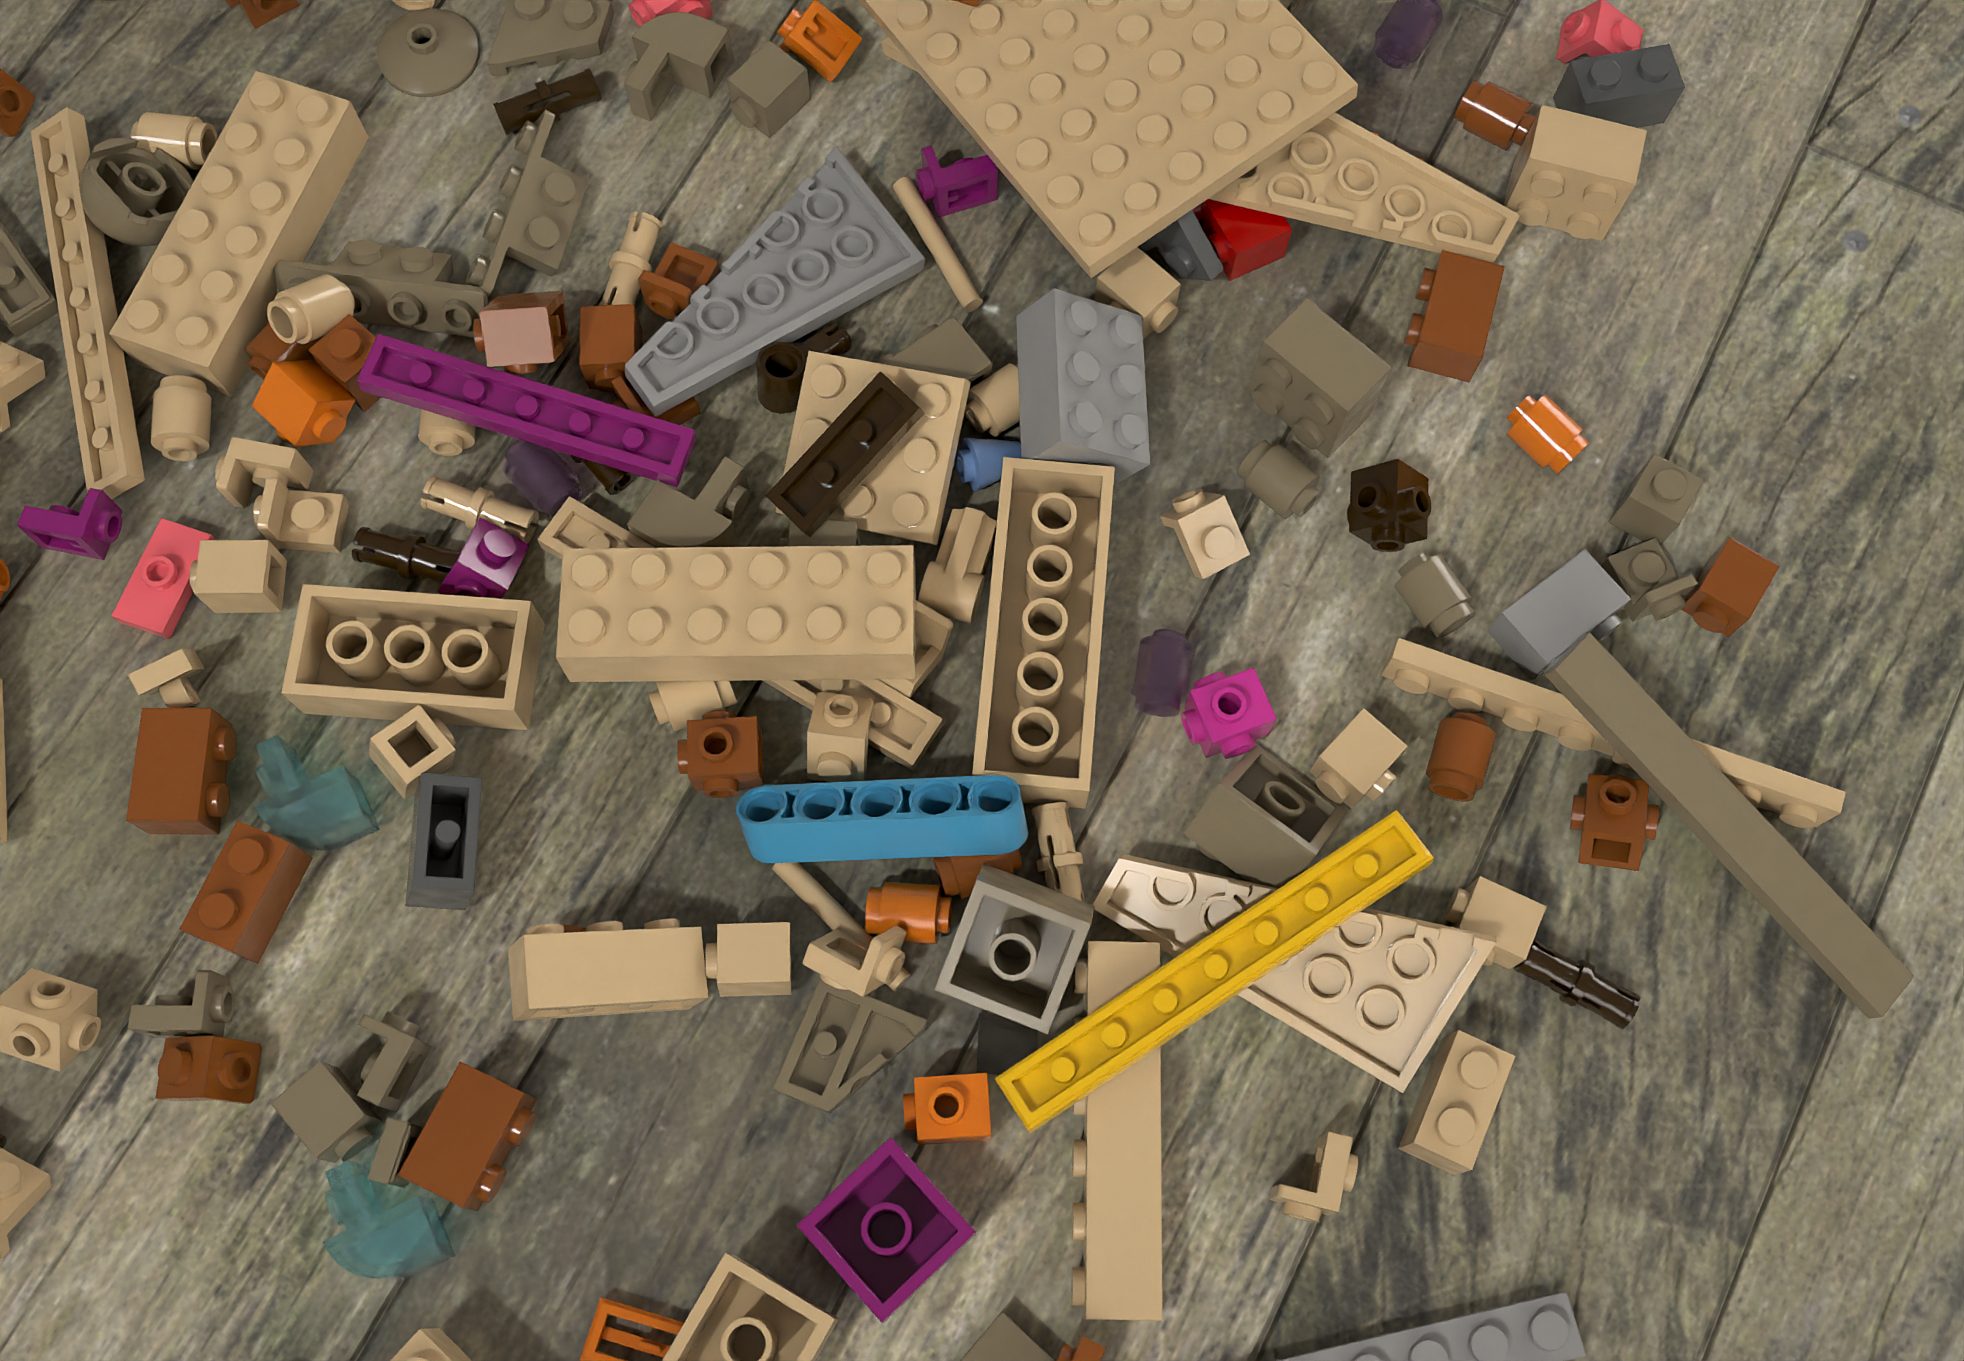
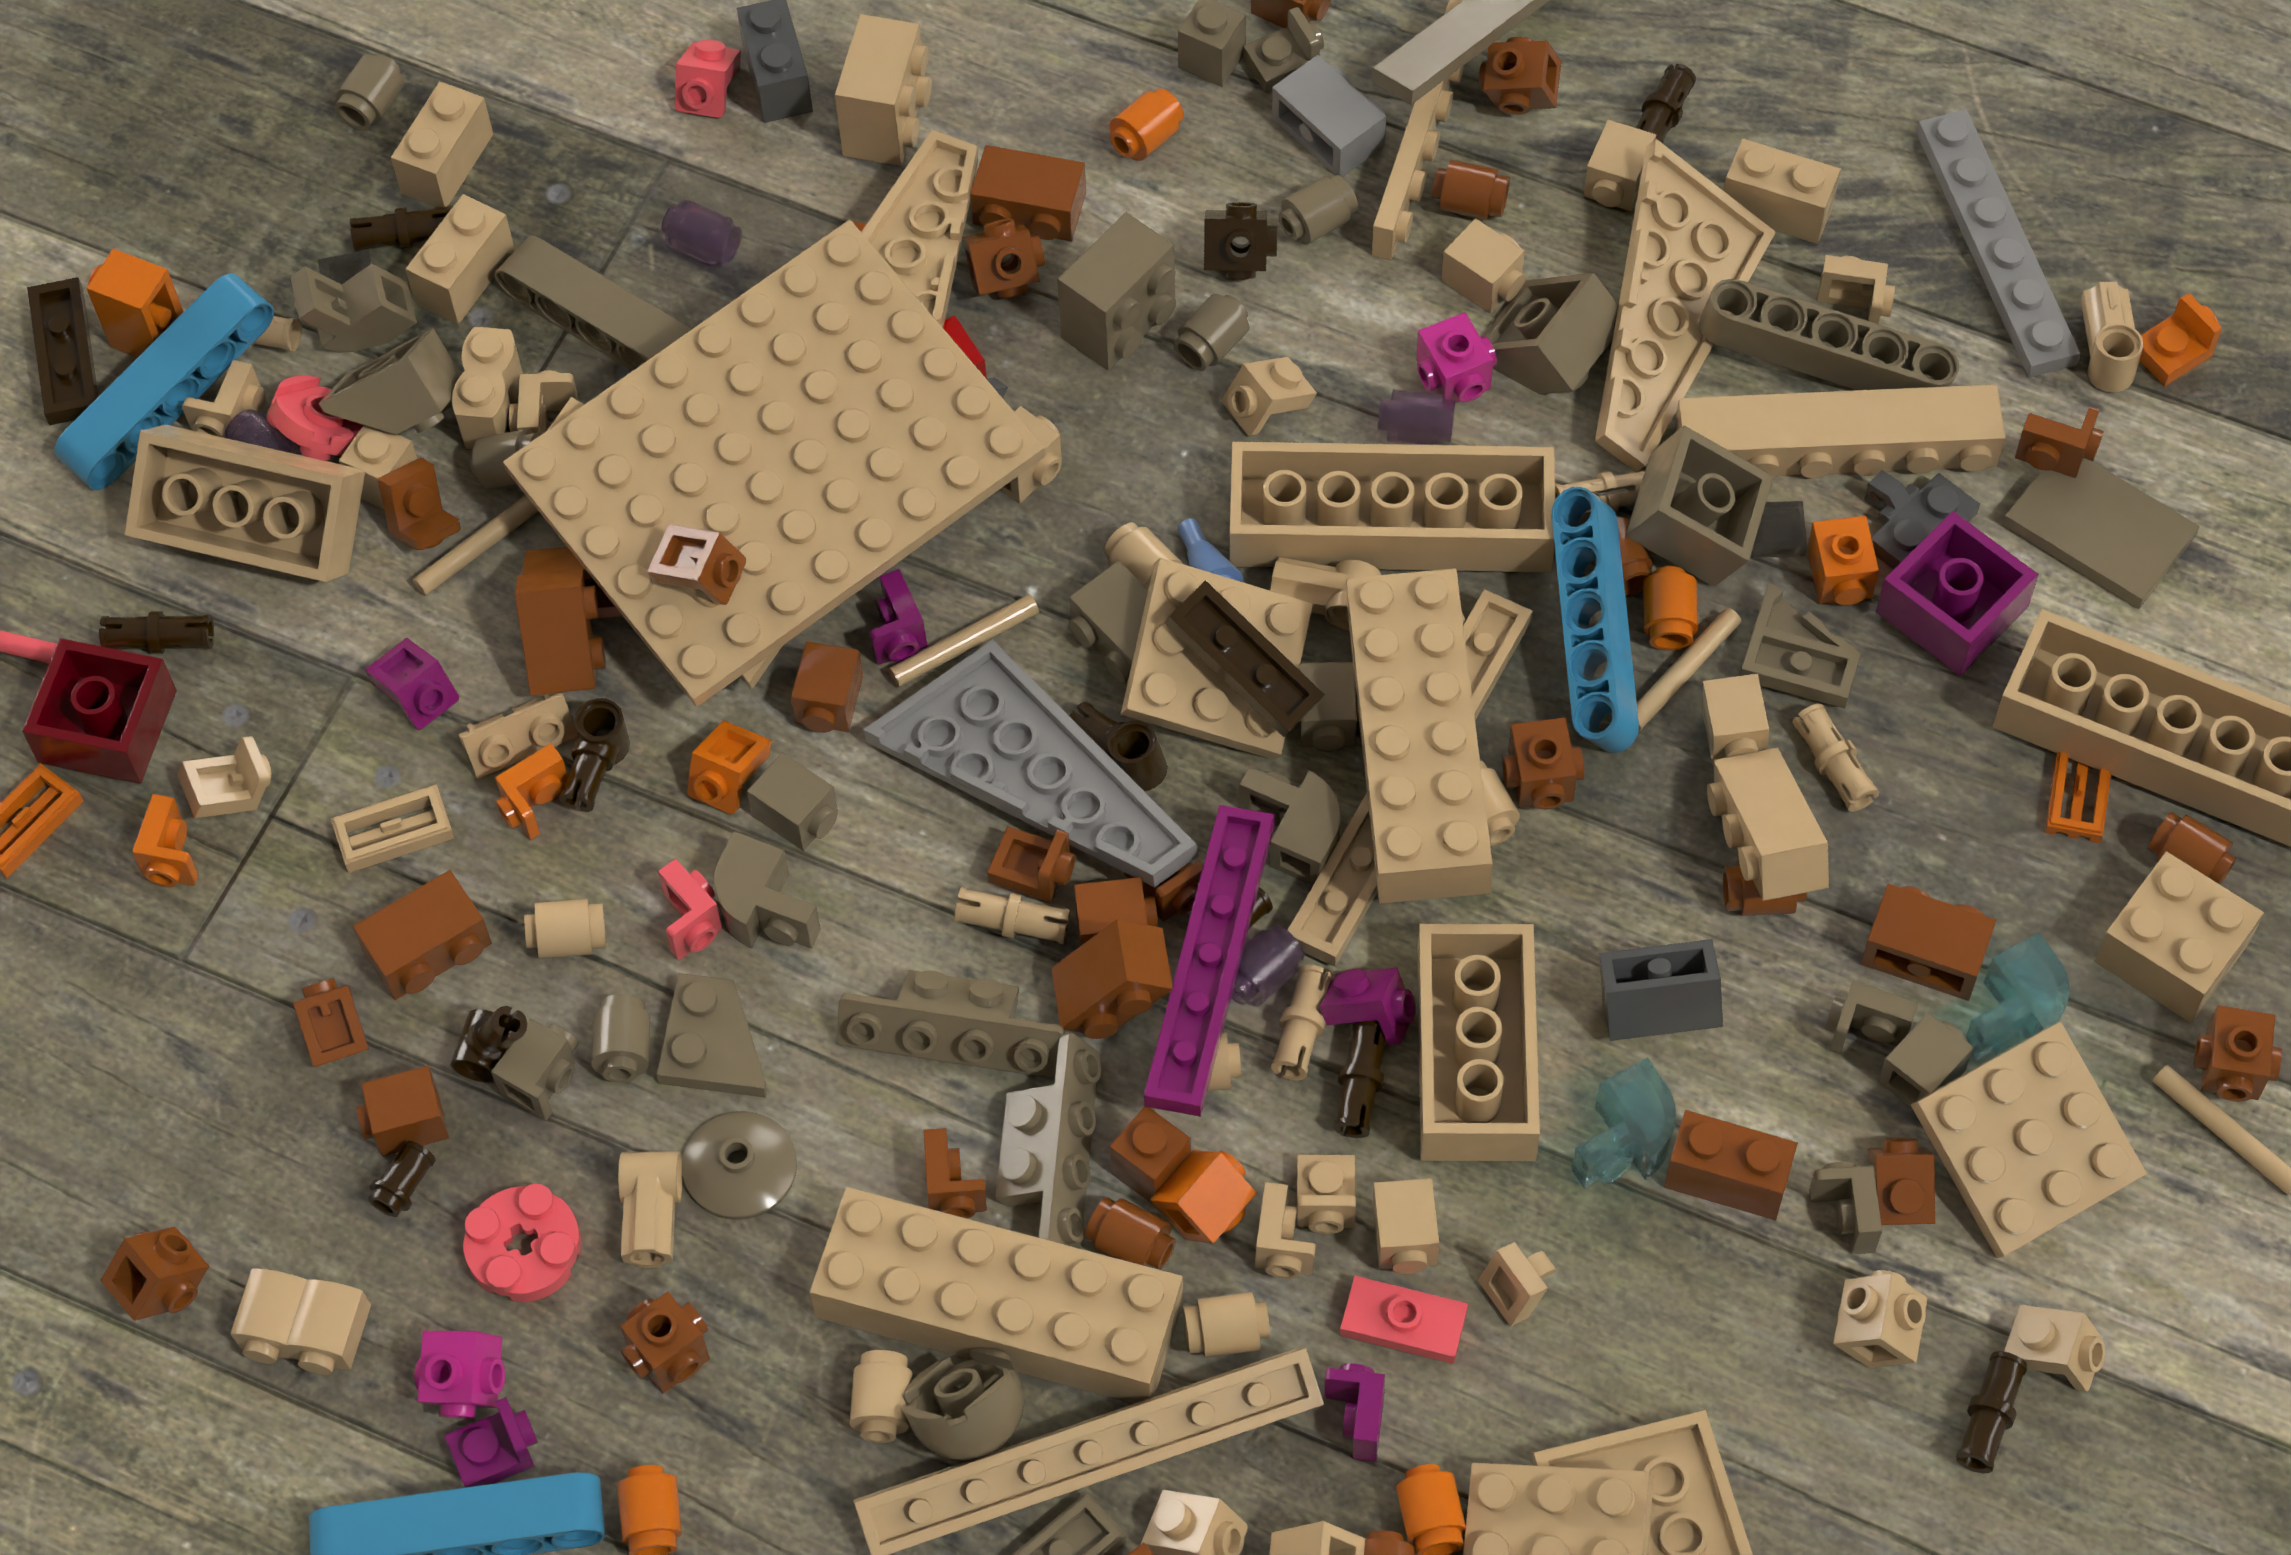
camera: 90 degrees left, 10 degrees down
(181, 771) = (1615, 1251): dark orange brick -> none
(214, 1208) = (2028, 1139): none -> tan plate
(310, 309) = (1110, 1179): tan brick -> none
(370, 192) = (943, 1176): none -> dark orange bracket
(393, 1151) = (1953, 998): dark tan tile -> none
(412, 747) = (1576, 1030): tan brick -> none
(582, 91) = (809, 1023): dark brown pin -> none
(710, 1070) = (1835, 757): none -> tan pin
(838, 738) = (1514, 664): tan bracket -> none
(854, 965) = (1730, 635): tan bracket -> none
(886, 119) = (827, 687): none -> dark orange brick
(1007, 1209) = (1912, 513): none -> dark grey hinge
(1082, 384) = (1144, 480): light grey brick -> none
(1213, 971) = (1705, 348): yellow tile -> none
(1233, 1159) = (1808, 327): none -> dark tan beam
(1368, 282) = (988, 248): none -> dark orange brick
(1495, 114) = (800, 161): dark orange brick -> none

